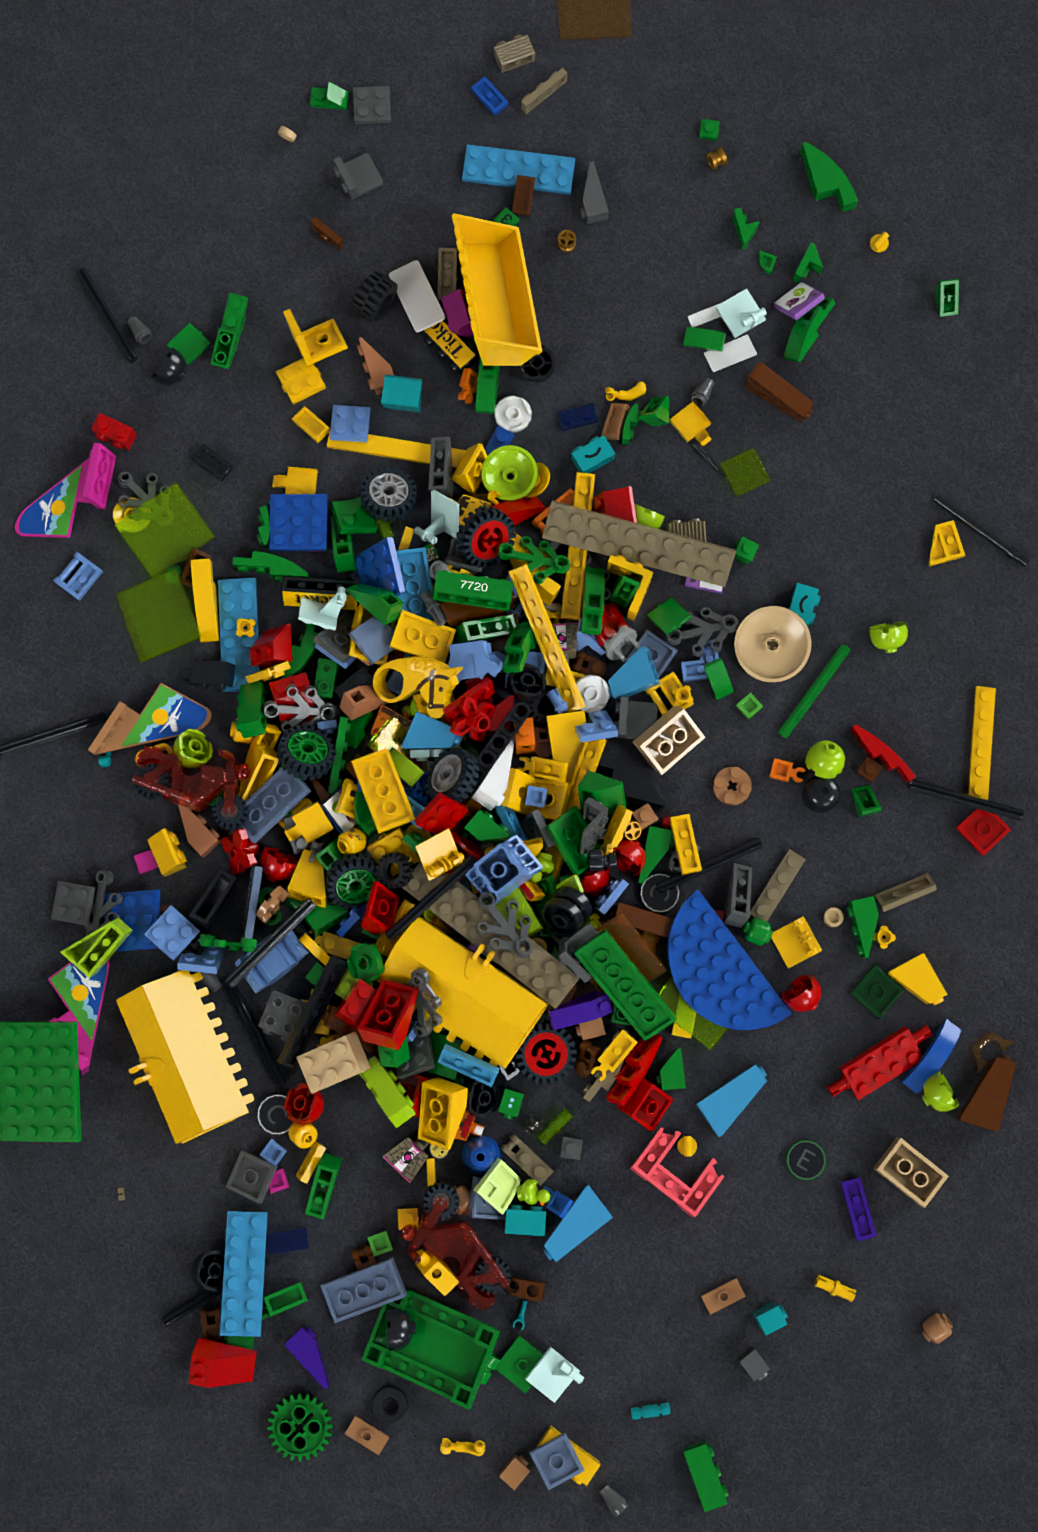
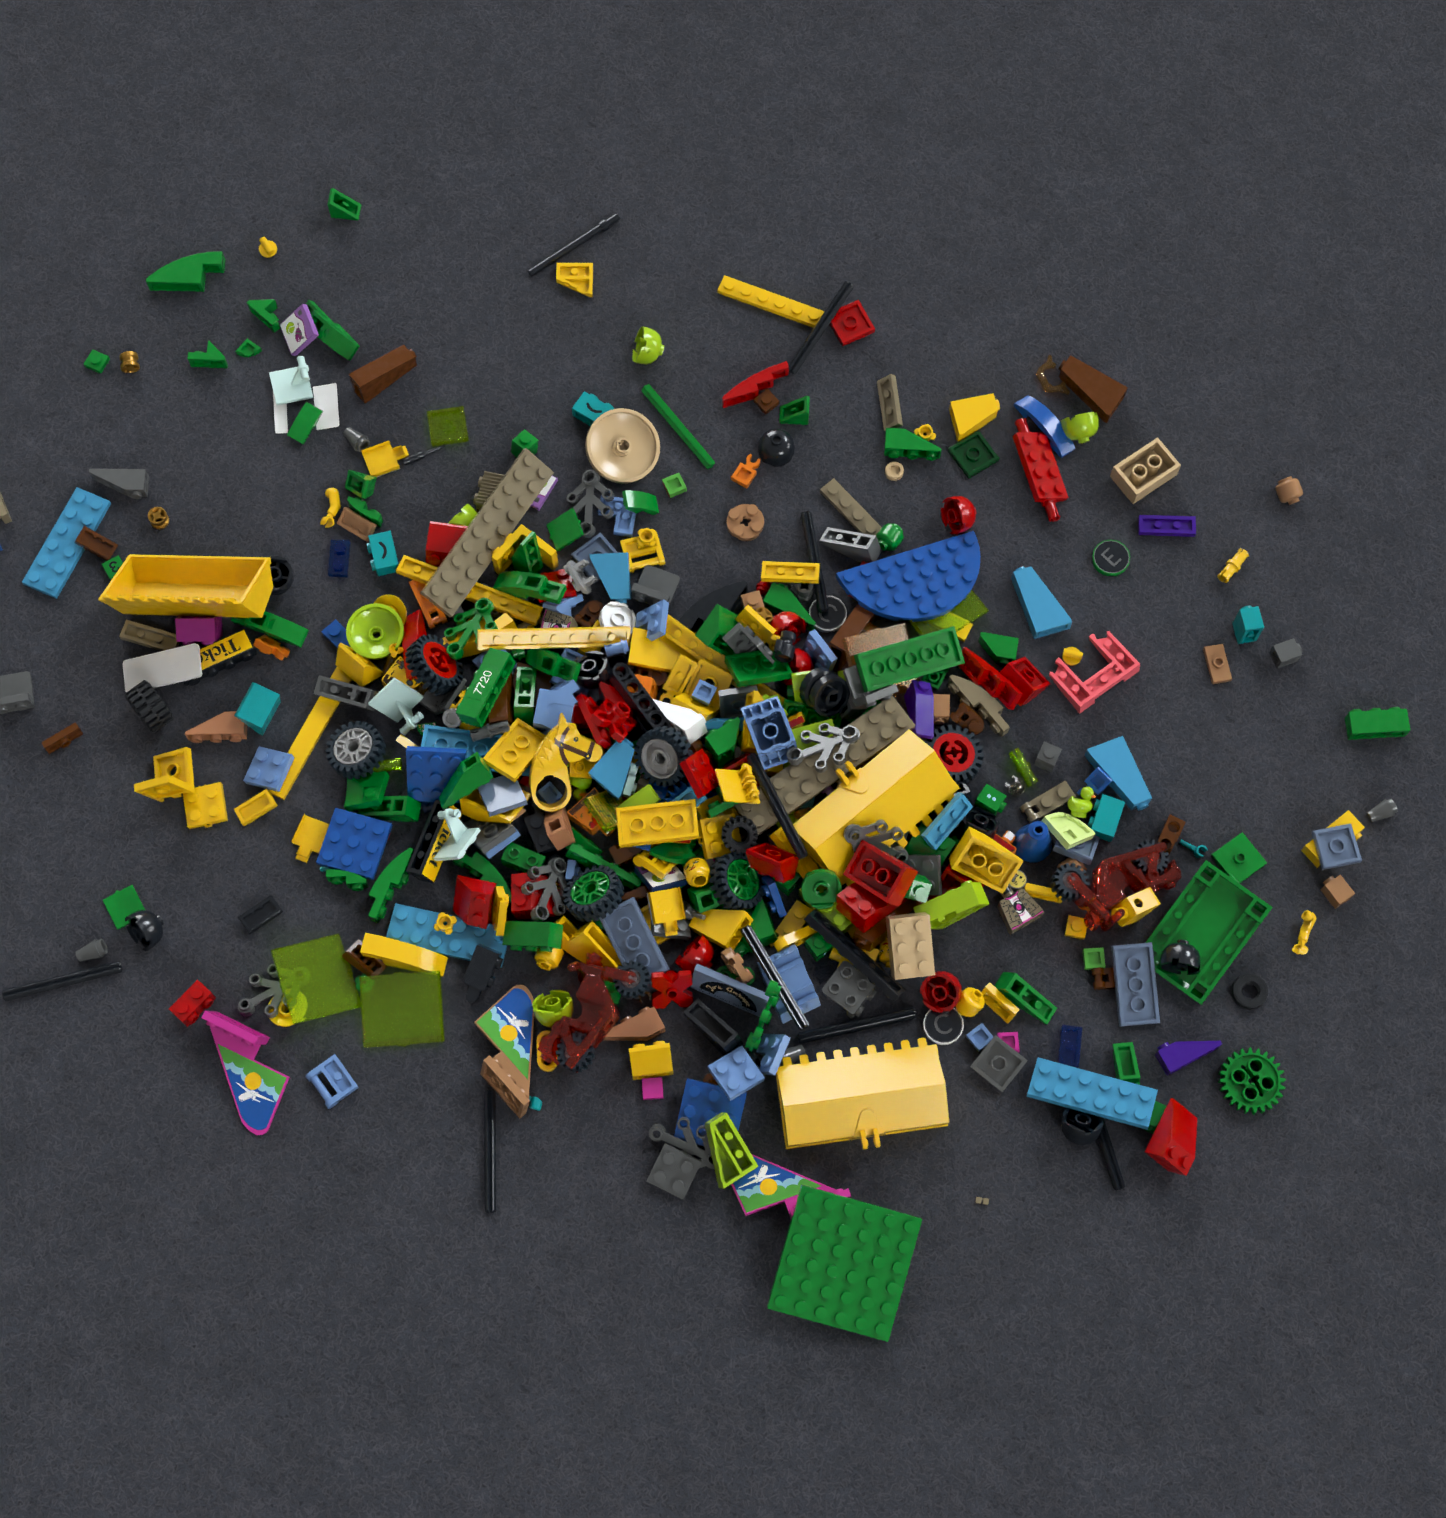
camera: 75 degrees left, 10 degrees down
(211, 1331) = (1139, 1143): reddish brown plate -> none
(230, 331) = (128, 860): green slope -> none
(367, 1435) = (1273, 1020): medium nougat plate -> none
(513, 413) = (312, 620): white tile -> none
(553, 1374) = (1254, 829): light aqua plate -> none
(615, 1053) = (971, 689): yellow plate -> none
(650, 1411) = (1308, 756): teal axle -> none
(668, 739) = (685, 560): tan brick -> none
(795, 942) = (909, 508): yellow hinge -> none
(825, 759) = (746, 431): lime cylinder -> none

